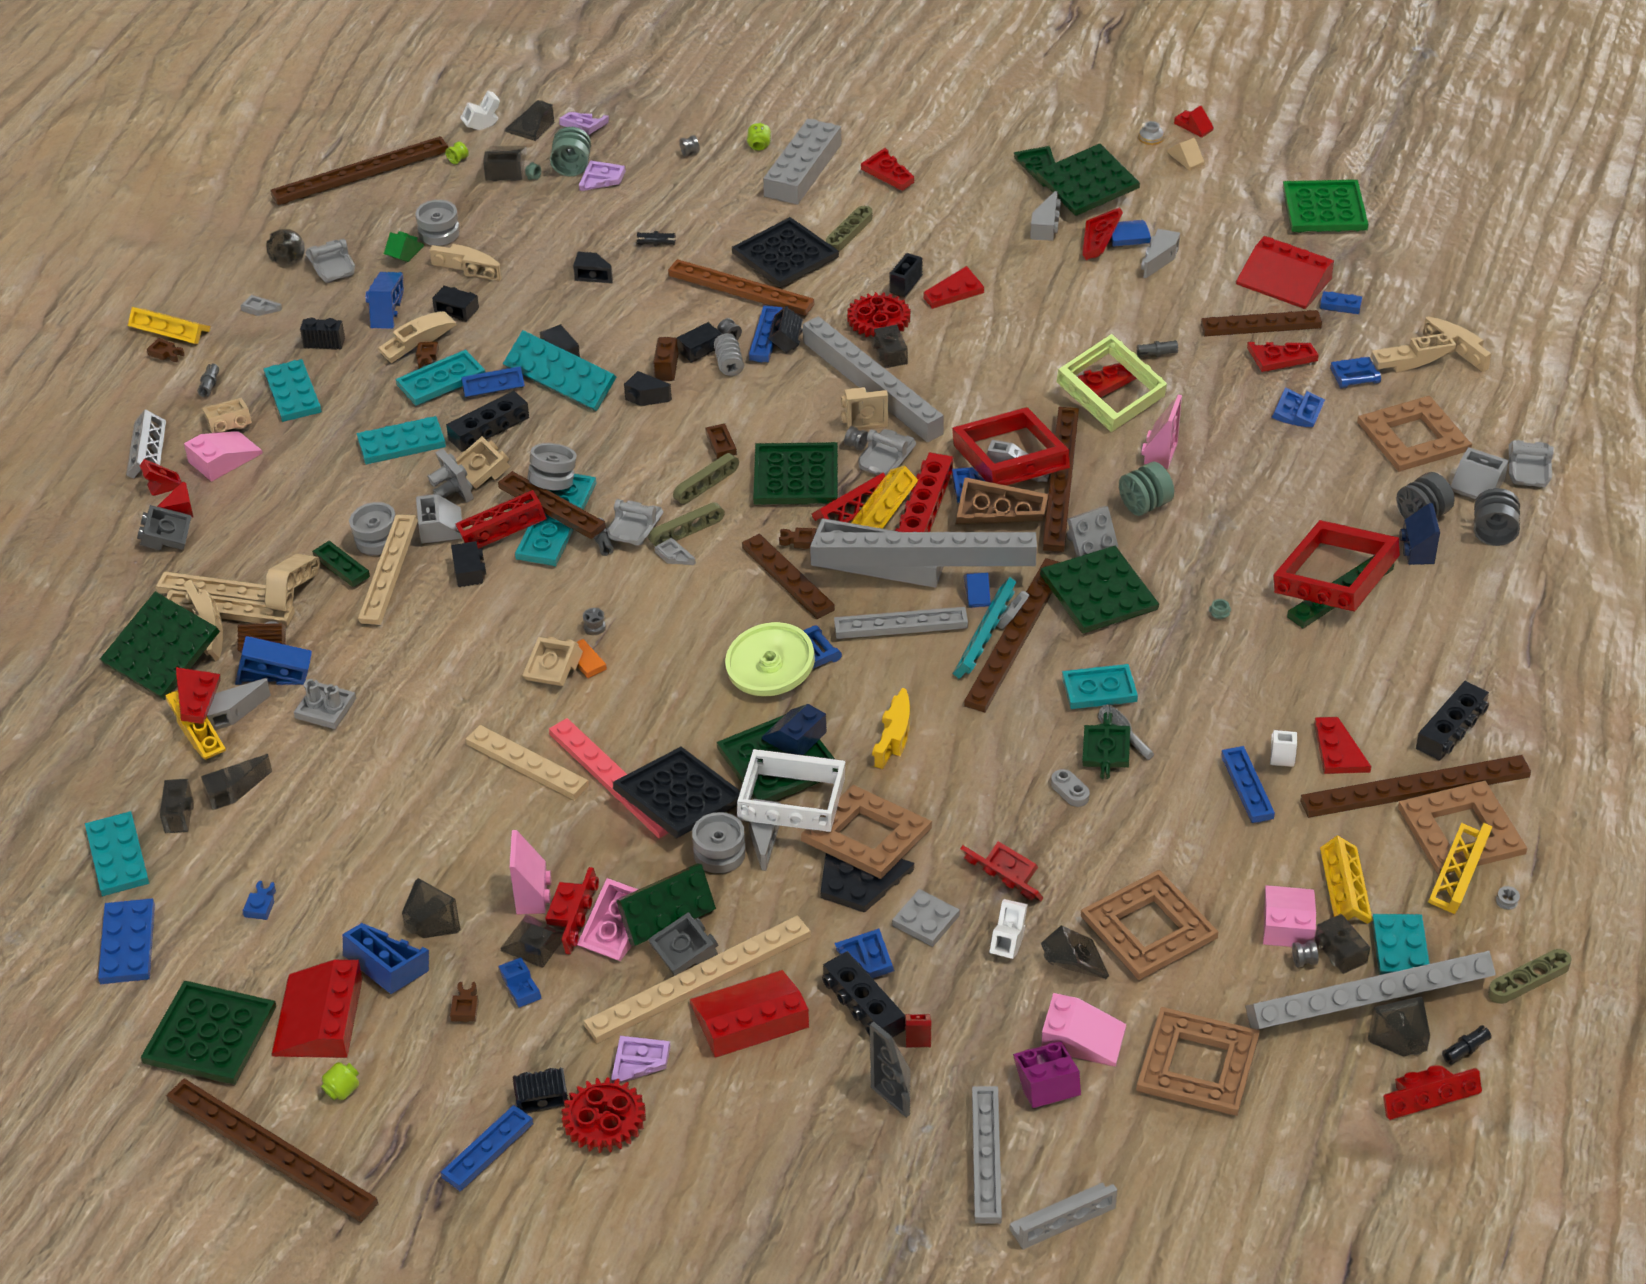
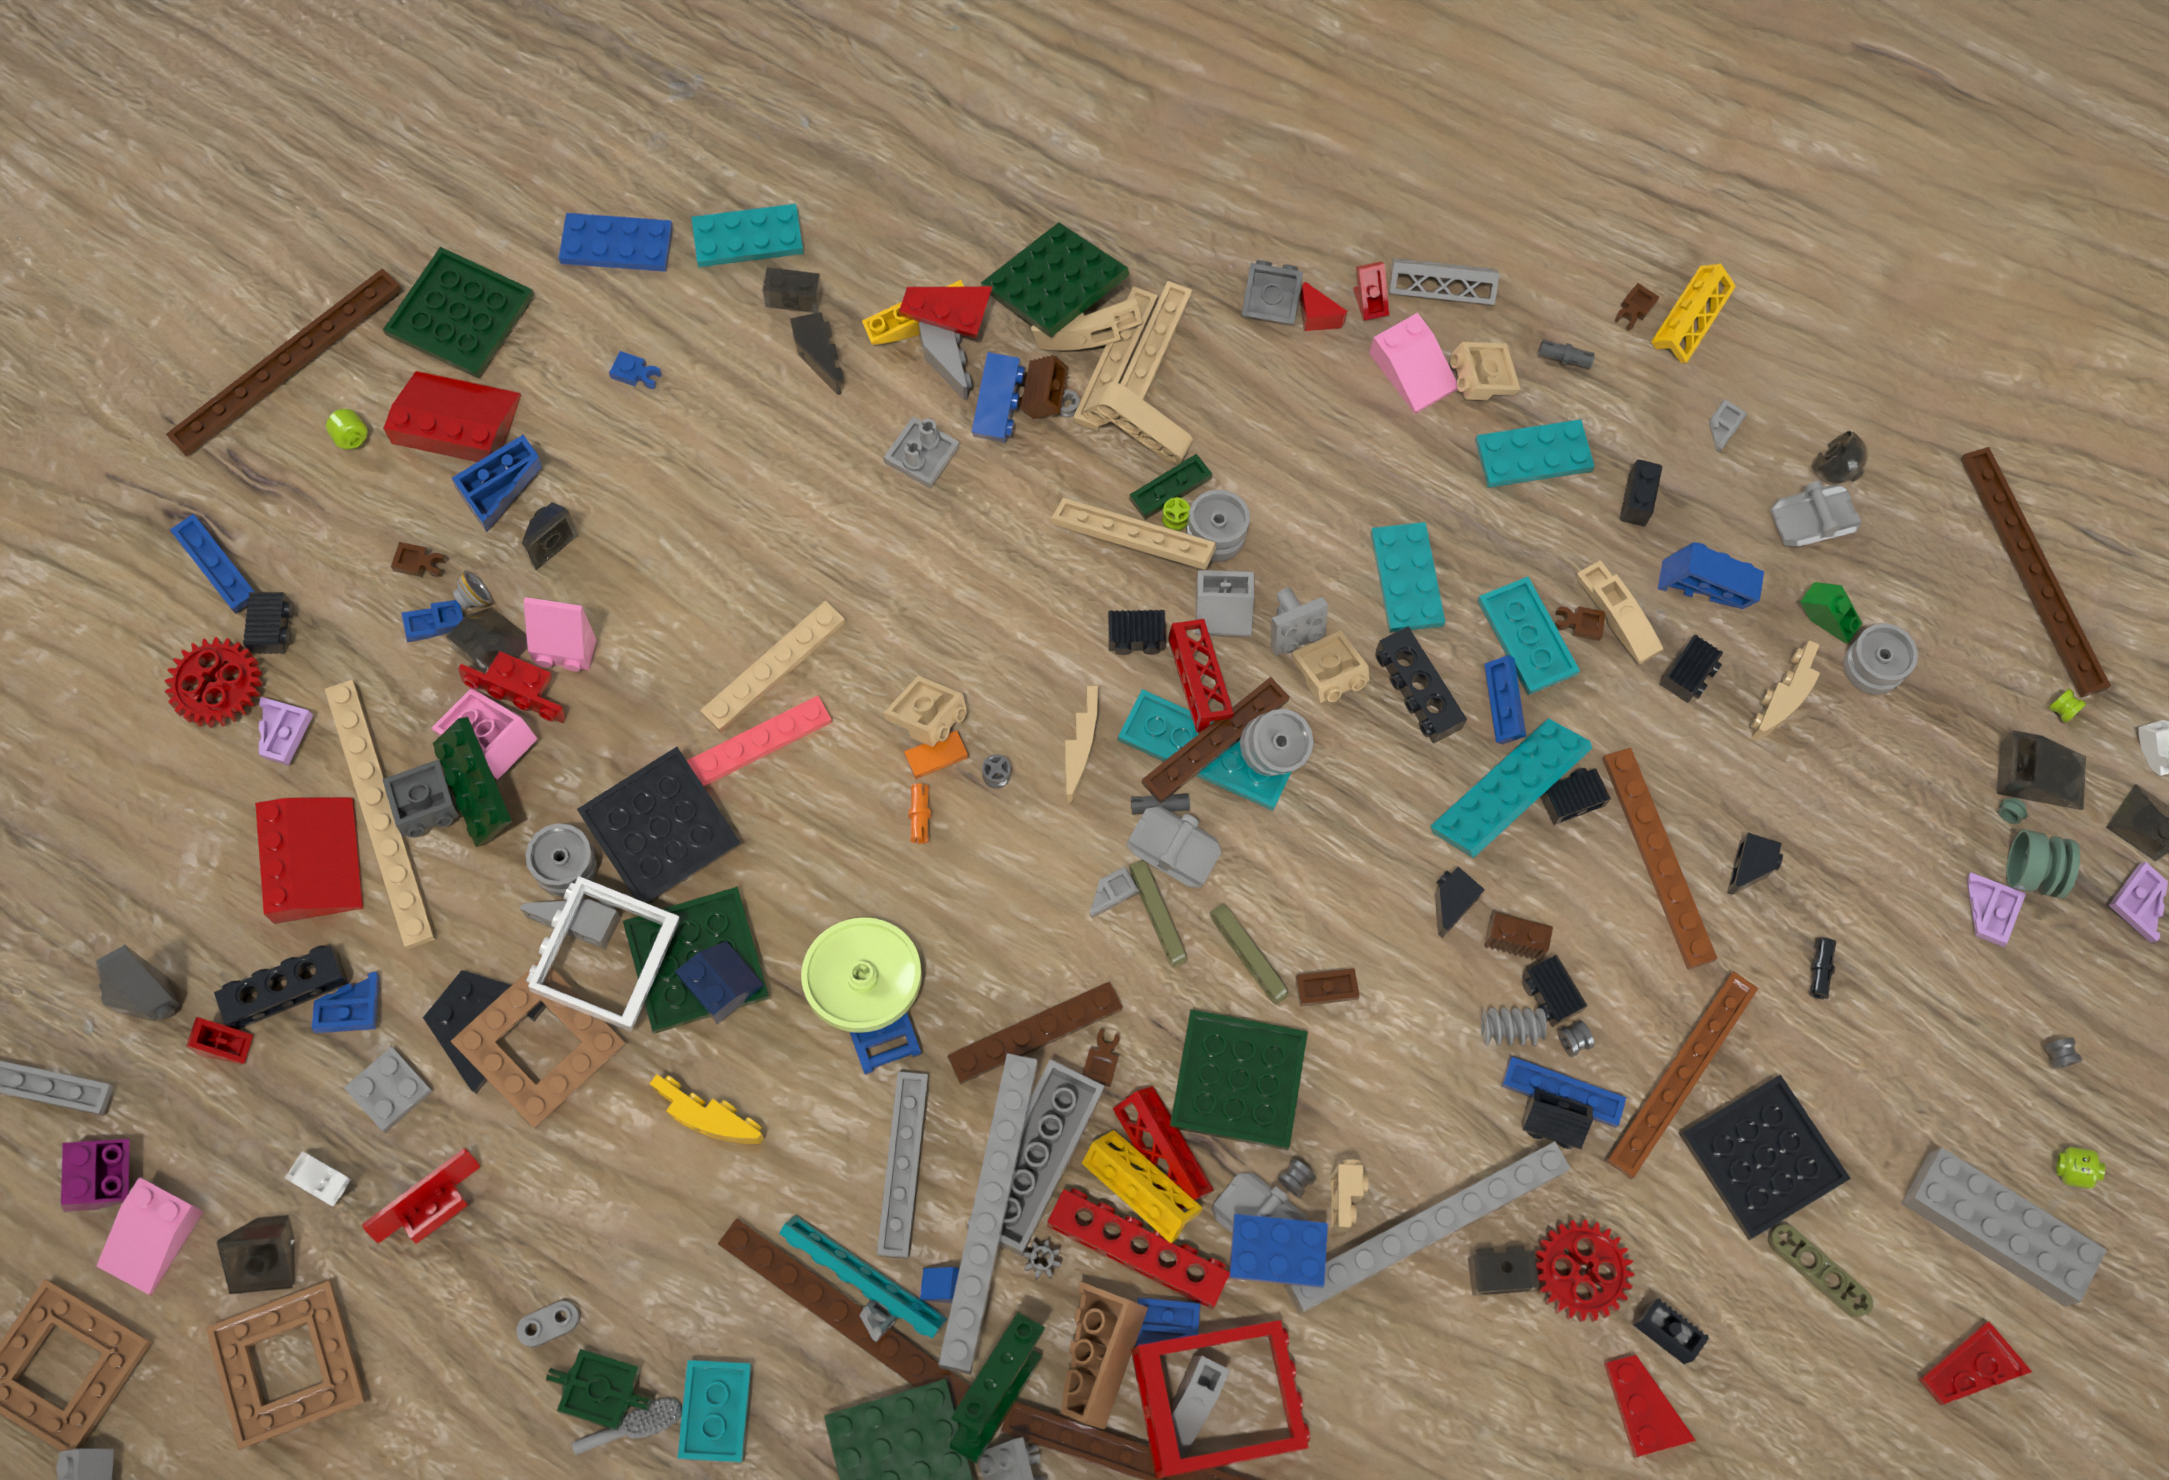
camera: 95 degrees right, 25 degrees up
(365, 556) = (1175, 507): none -> lime wheel
(490, 956) = (471, 591): none -> light grey piece
(568, 578) = (1079, 750): none -> tan slope
(598, 308) = (1659, 859): none -> dark orange plate
(635, 656) = (919, 813): none -> orange pin
(910, 424) = (1278, 1250): none -> blue plate
(1047, 516) = (996, 1388): none -> dark green fence

